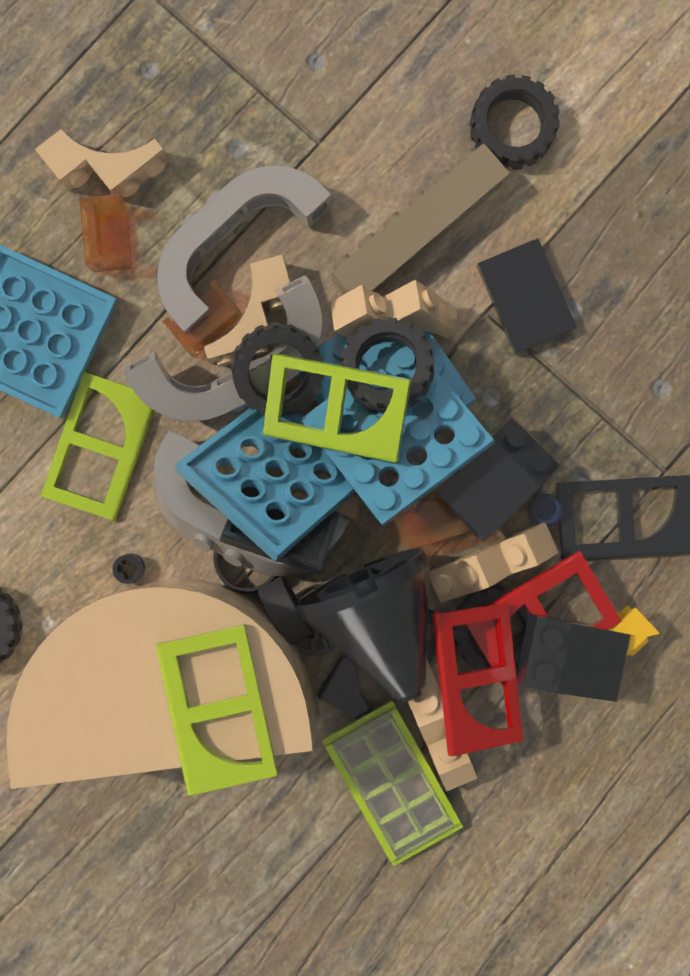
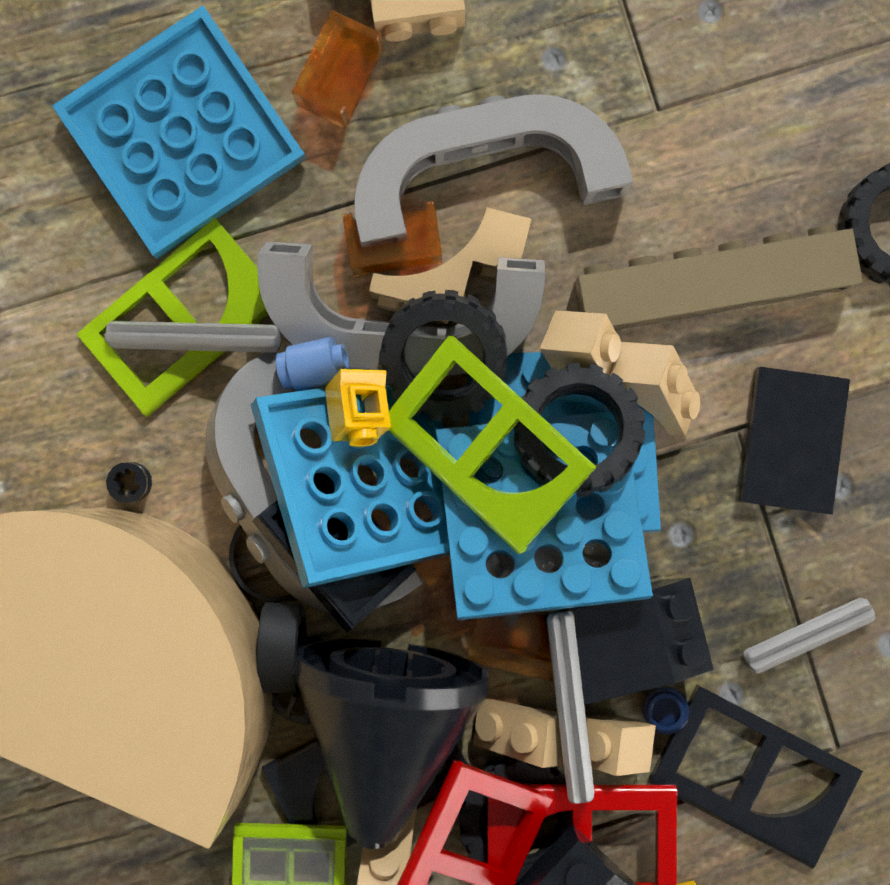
camera: 30 degrees right, 0 degrees up
(114, 452) = (193, 336): none -> light grey axle
(199, 424) = (311, 364): none -> medium blue brick
(201, 766) = (64, 788): lime window -> none
(237, 442) = (343, 414): none -> yellow window
(484, 539) = (570, 706): none -> light grey axle
(607, 411) = (809, 635): none -> light grey axle

